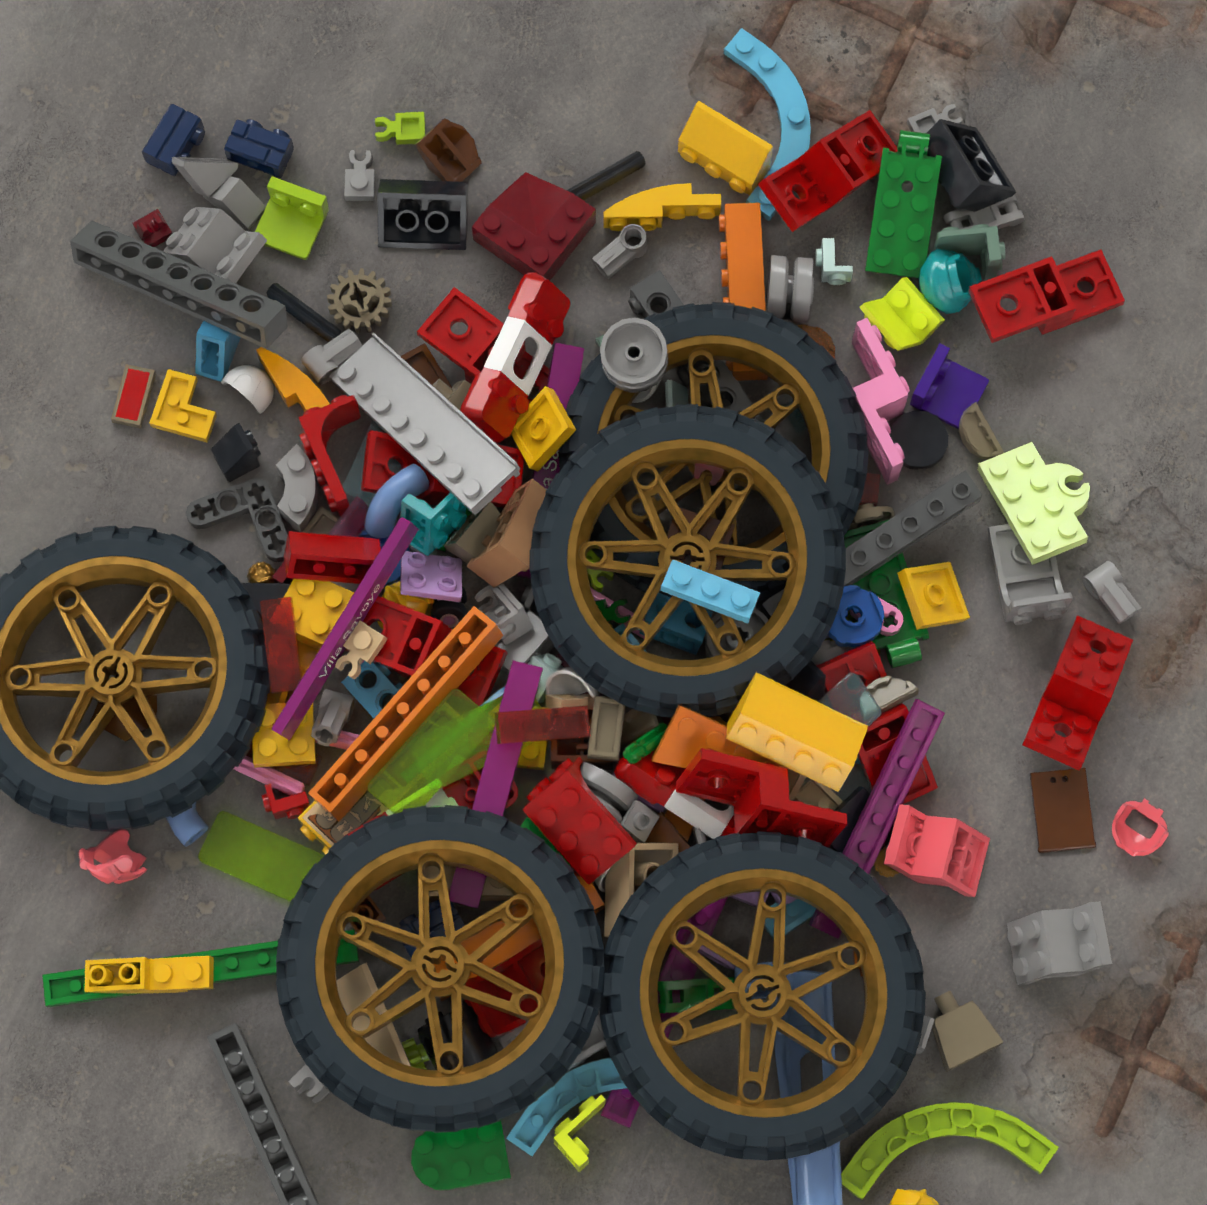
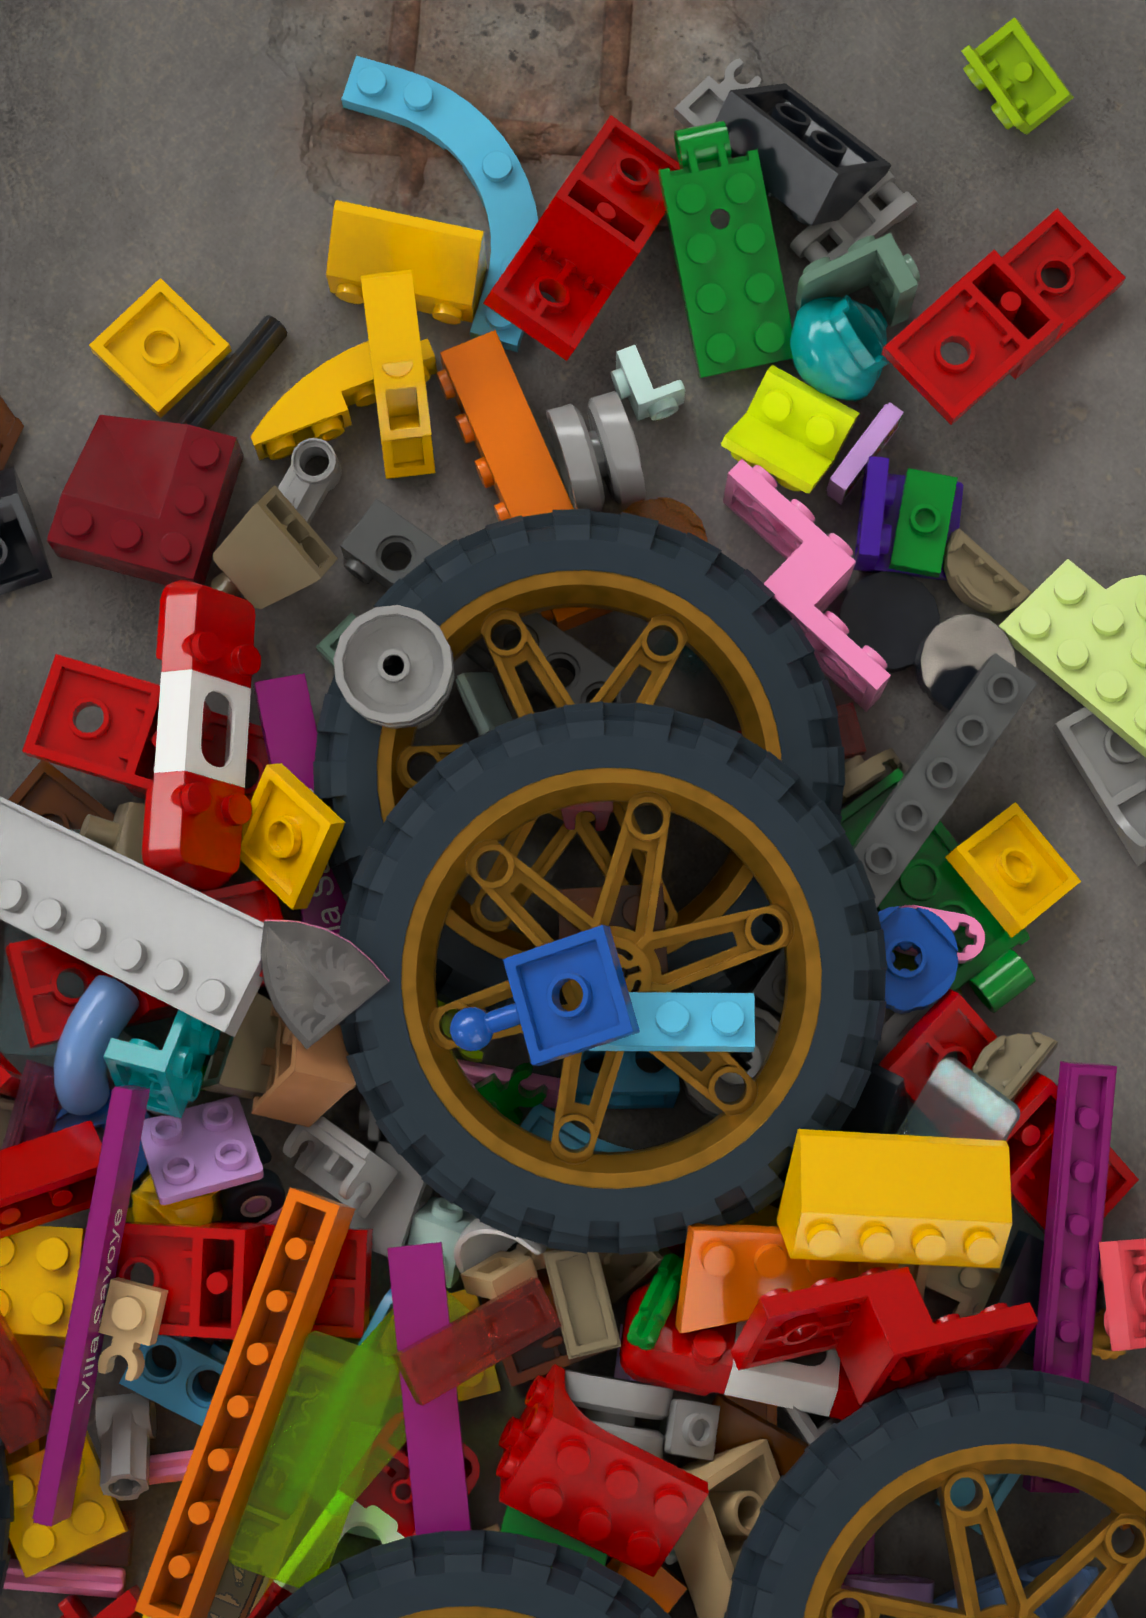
camera: 20 degrees left, 5 degrees up
(529, 498) = (314, 977): none -> shield
(572, 147) = (160, 348): none -> yellow plate
(590, 277) = (271, 553): none -> dark tan torso
(645, 542) = (535, 984): none -> blue plate
(696, 206) = (398, 373): none -> yellow slope
(946, 465) = (954, 654): none -> tile
(948, 337) = (868, 445): none -> lavender tile
(957, 392) = (923, 523): none -> green plate
(1106, 170) = (1017, 77): none -> lime bracket

